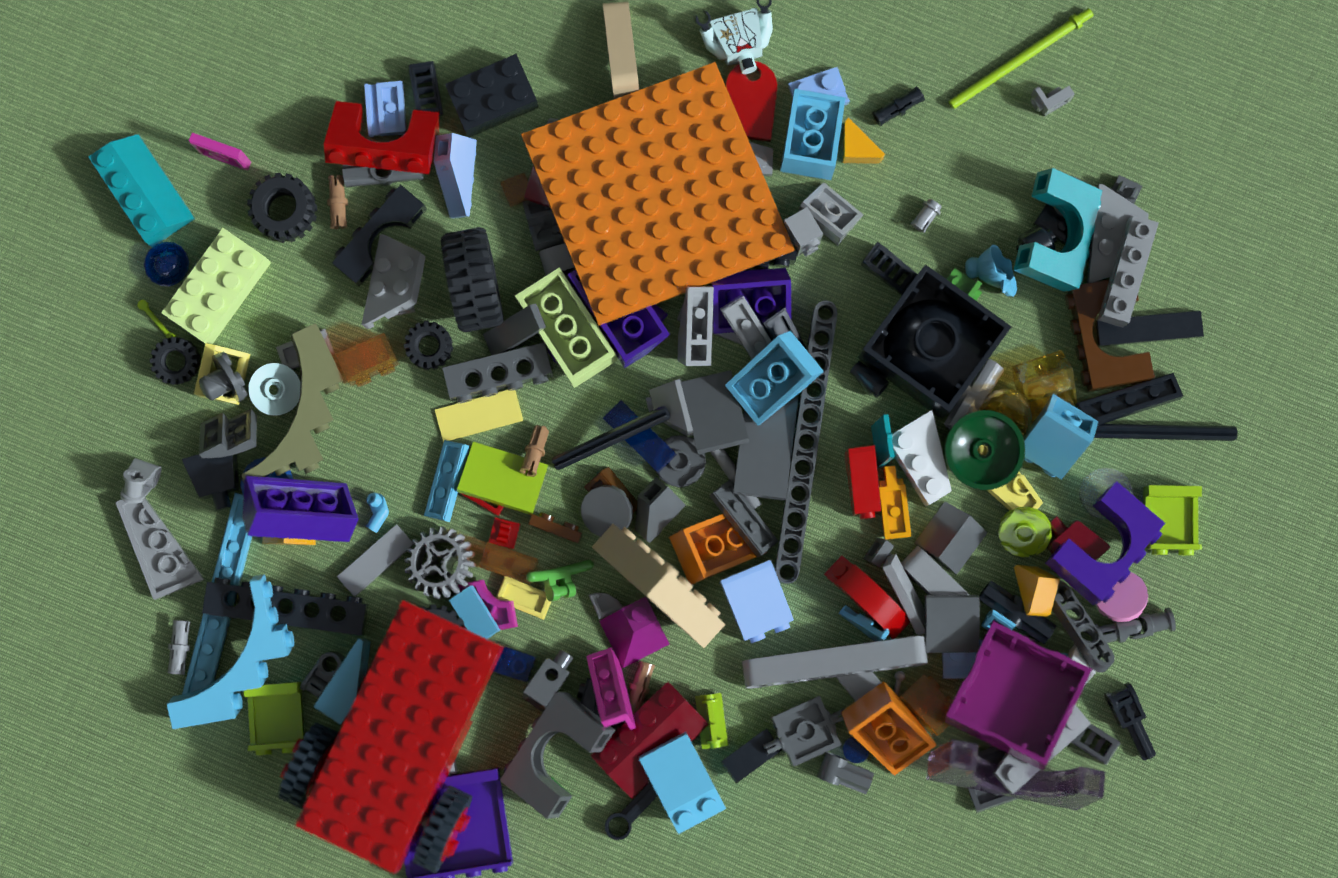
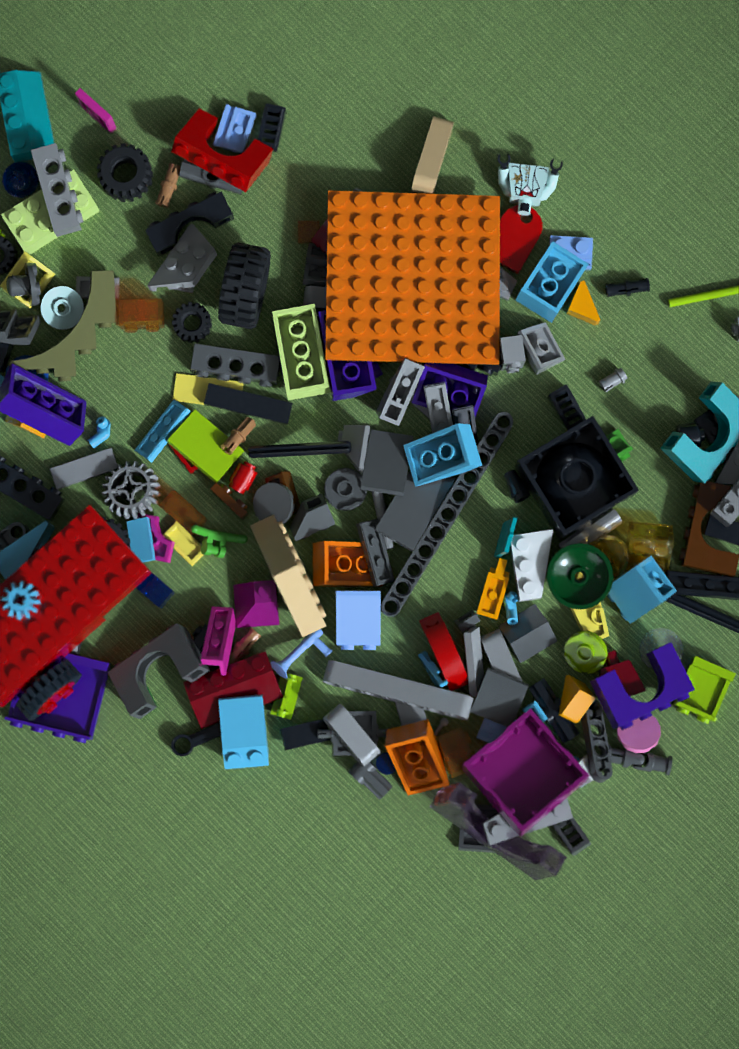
camera: 25 degrees right, 0 degrees up
(184, 229) = (43, 159): none -> light grey brick
(370, 732) = (26, 593): none -> medium azure gear
(455, 168) = (268, 196): light blue slope -> none
(492, 95) = (319, 152): black brick -> none
(504, 533) = (189, 488): red tile -> none
(514, 330) = (261, 337): dark grey tile -> none
(530, 410) = (248, 403): none -> black tile
(542, 690) = (167, 617): dark grey torso -> none
(559, 495) = (243, 477): none -> red brick
(604, 604) = (242, 573): light grey tile -> none
(646, 443) = (324, 464): clear blue tile -> none
(693, 691) = (313, 638): none -> light blue piece
(805, 735) = (351, 735): none -> light grey beam
(863, 481) = (477, 562): red slope -> none
(917, 512) = (511, 607): none -> medium azure arm
(993, 270) = (646, 443): medium azure hair -> none
(1129, 713) = (606, 823): black connector -> none

